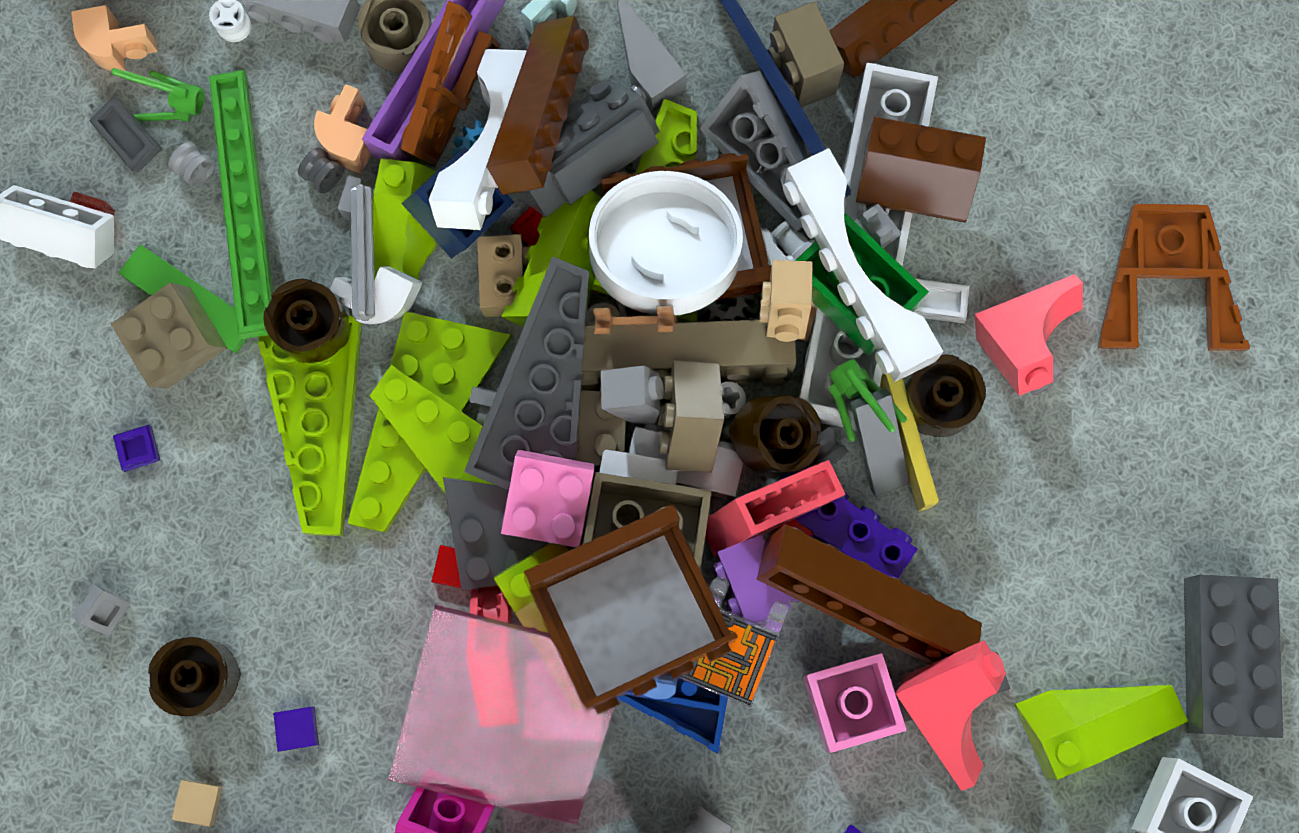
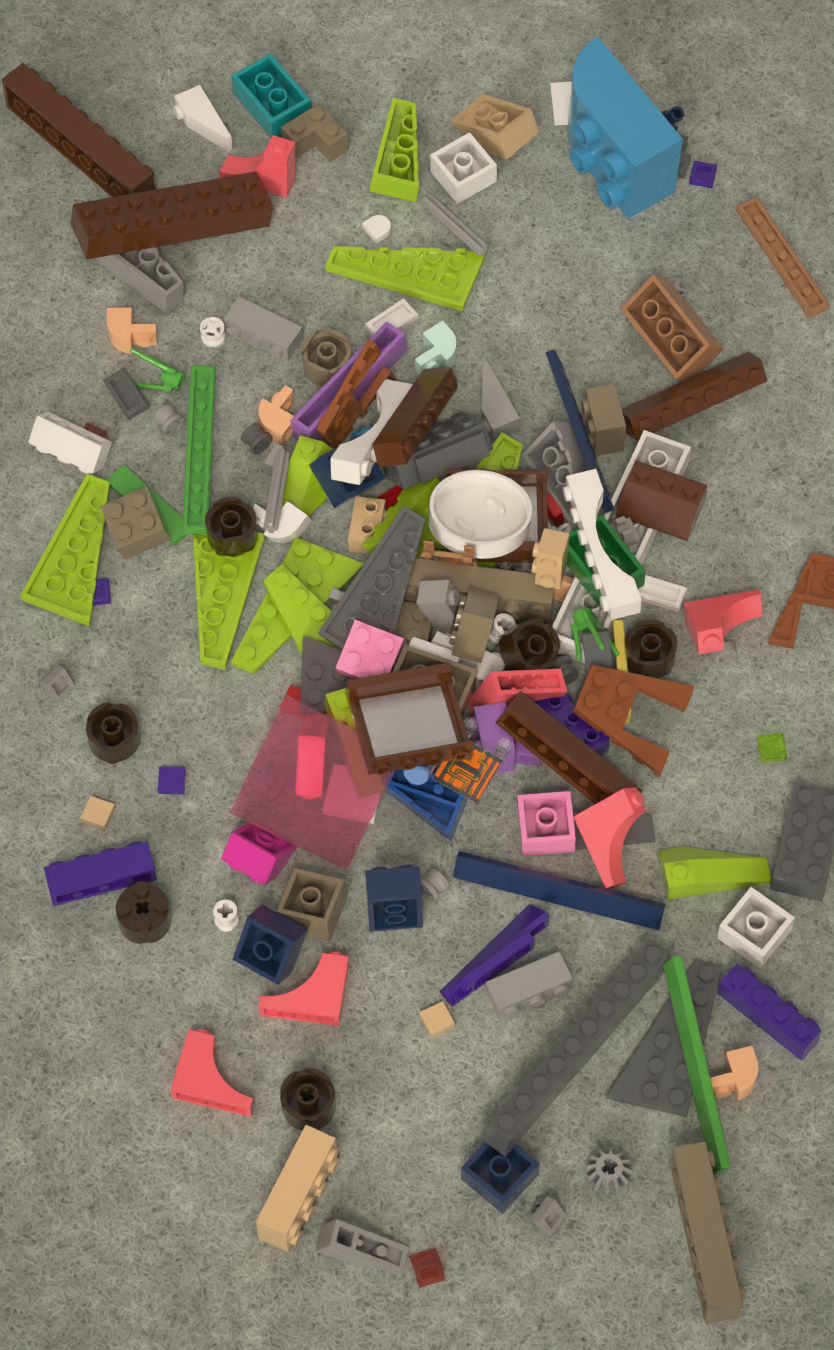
camera: 10 degrees right, 15 degrees down
(88, 413) = (70, 564): none -> lime wing
(765, 208) = (554, 512): none -> red tile
(893, 802) = (559, 890): none -> dark blue tile
(905, 500) = (607, 702): none -> dark orange wing
(1141, 510) = (771, 747): none -> clear neon green tile

